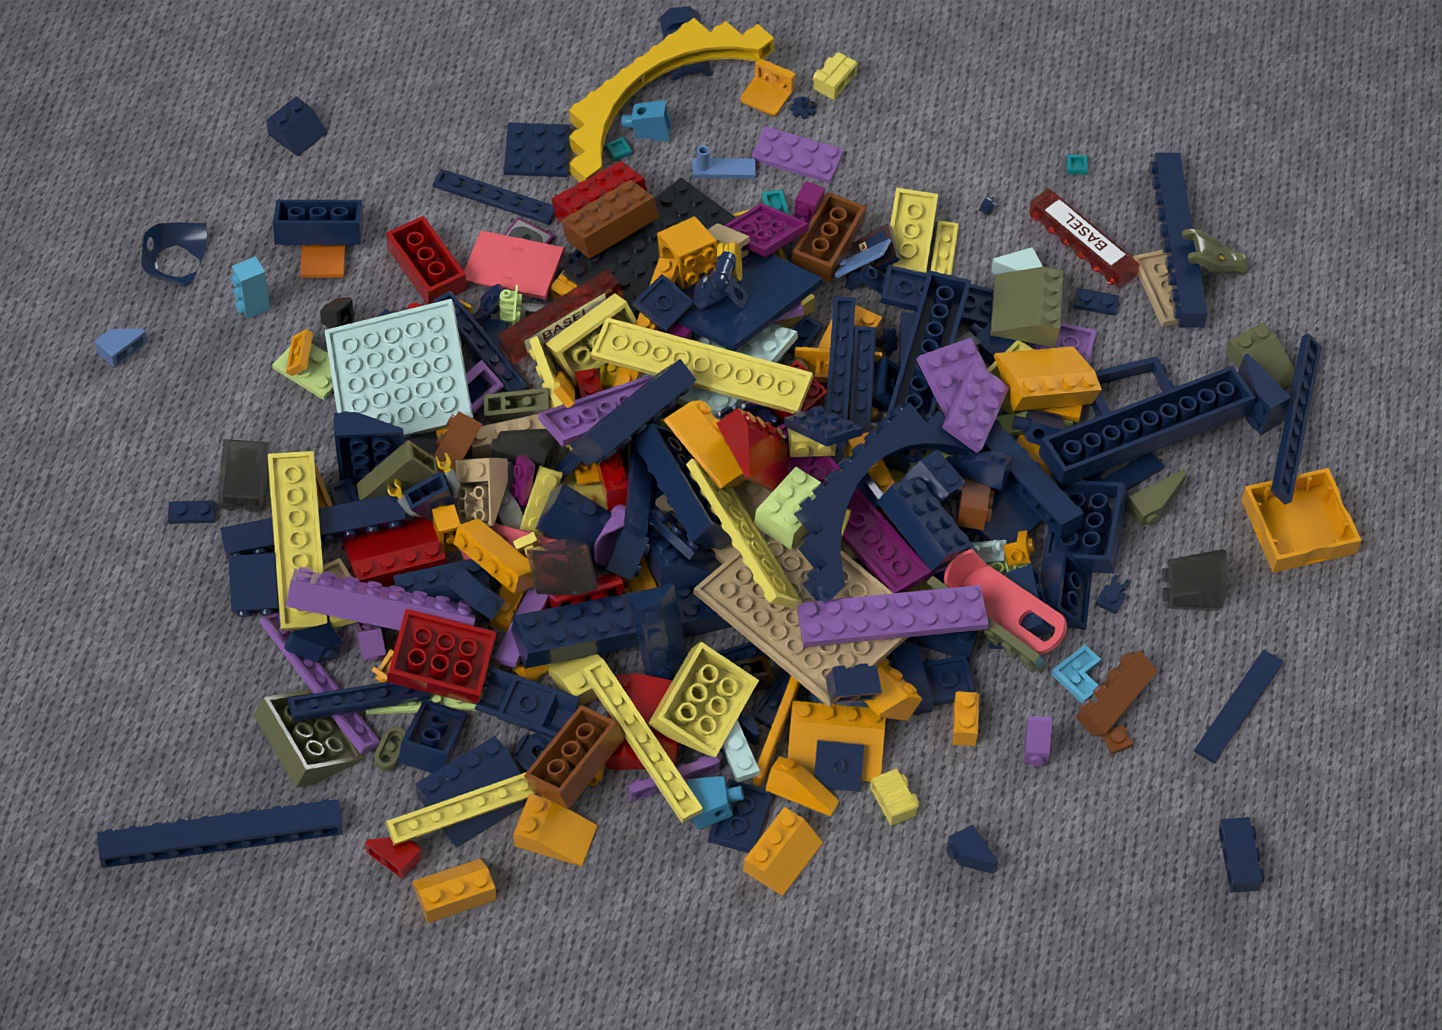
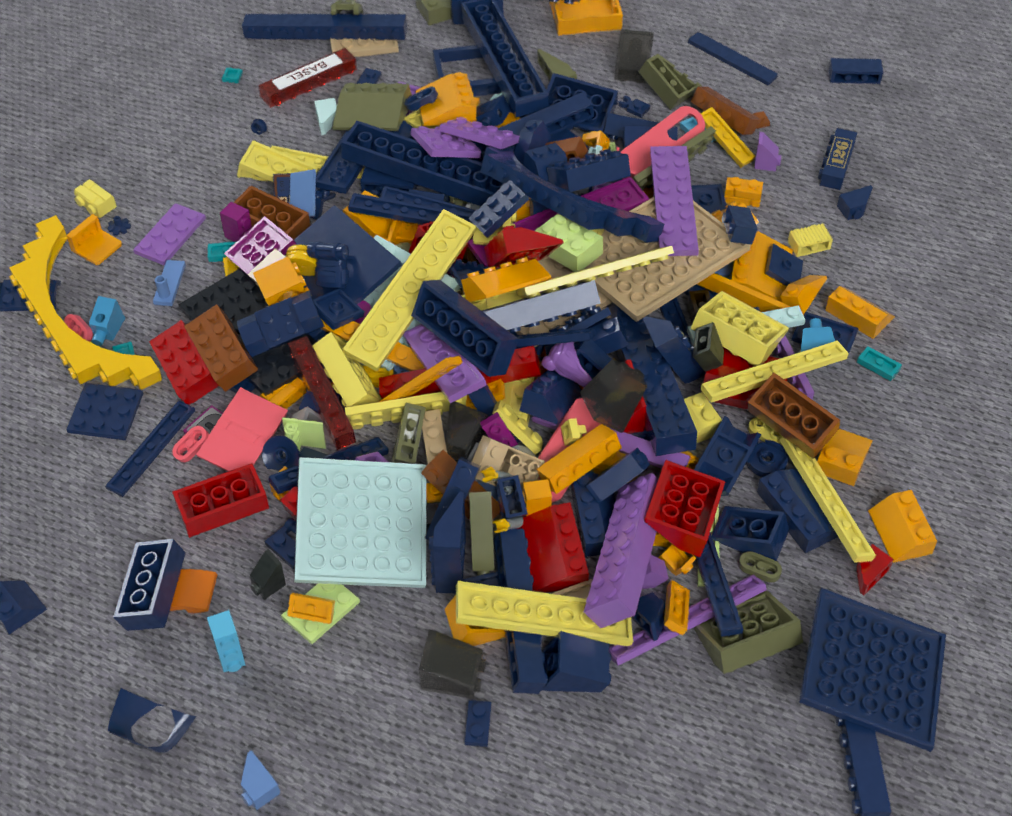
camera: 80 degrees left, 5 degrees down
(261, 846) = (874, 669): none -> dark blue tile
(324, 665) = (676, 608): none -> light orange plate
(434, 439) = (460, 481): none -> dark blue brick
(496, 224) = (190, 443): none -> coral plate
(637, 255) = (279, 323): none -> dark blue piece
(647, 96) = (79, 326): none -> coral plate
(658, 664) = (708, 347): none -> pearl dark grey slope
(698, 872) = (879, 363): none -> teal plate
(1038, 345) = (421, 98): none -> dark blue plate
(1052, 830) = (838, 159): none -> dark blue brick
(1064, 689) = (727, 138): none -> yellow plate
(1149, 620) = (667, 81): none -> olive wedge

